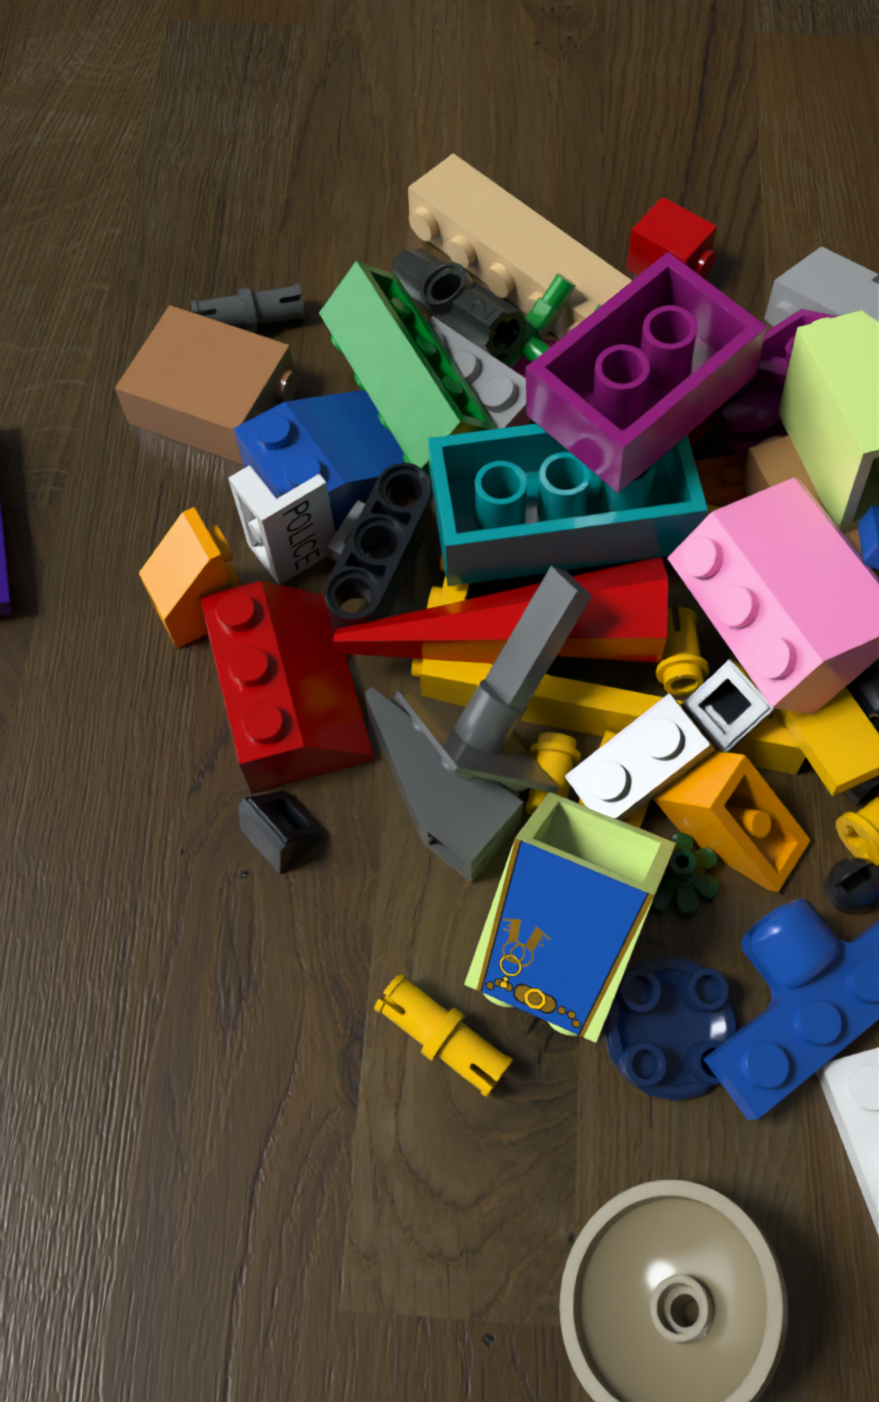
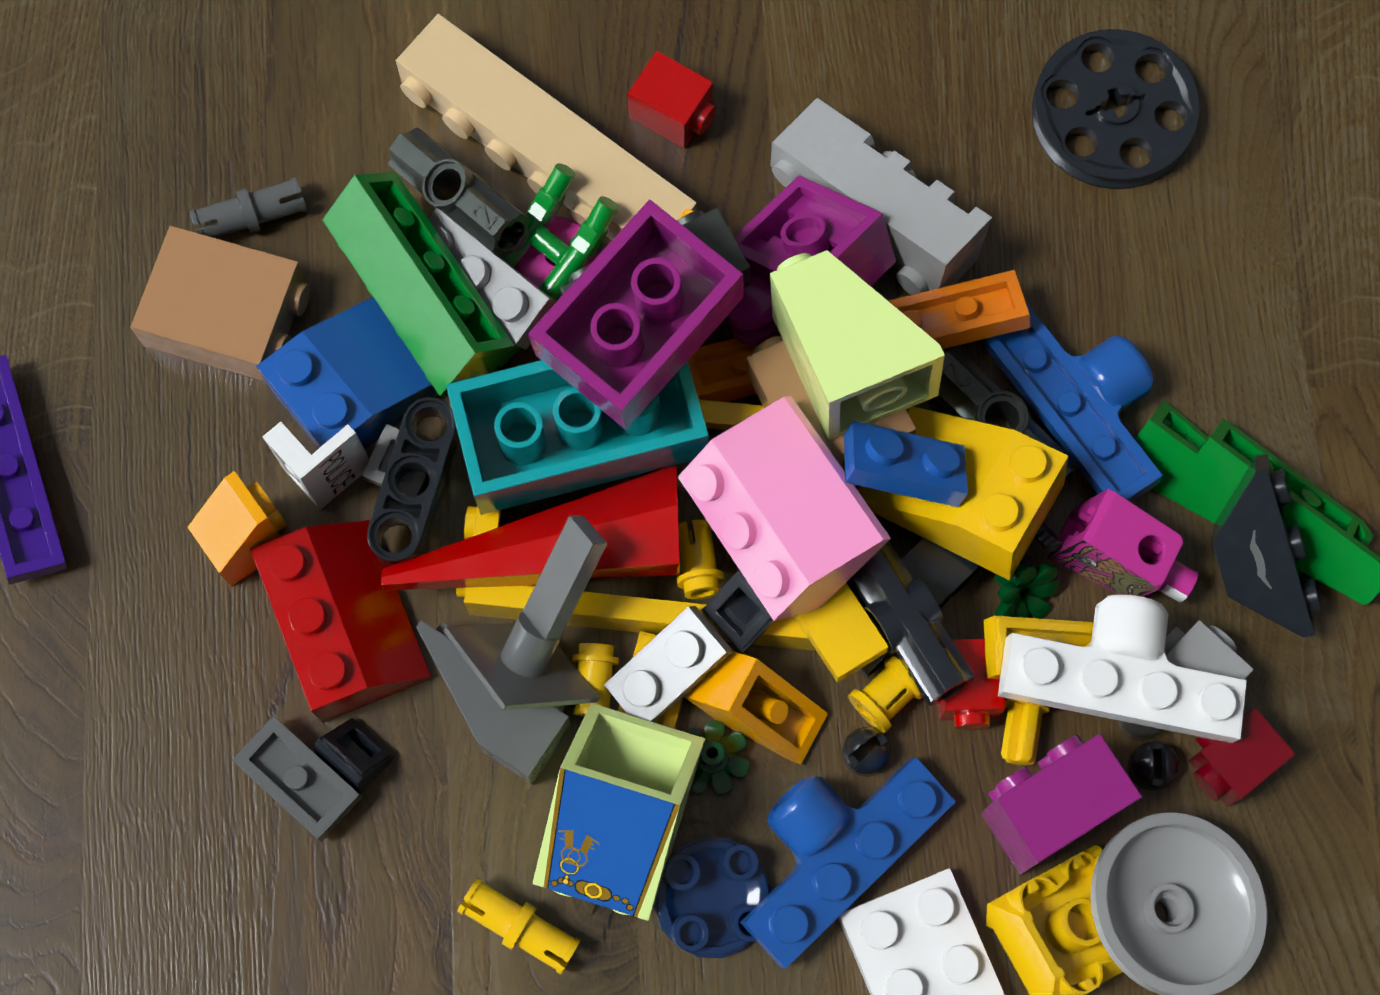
camera: 10 degrees left, 10 degrees up
(215, 844) = (297, 779): none -> dark grey plate

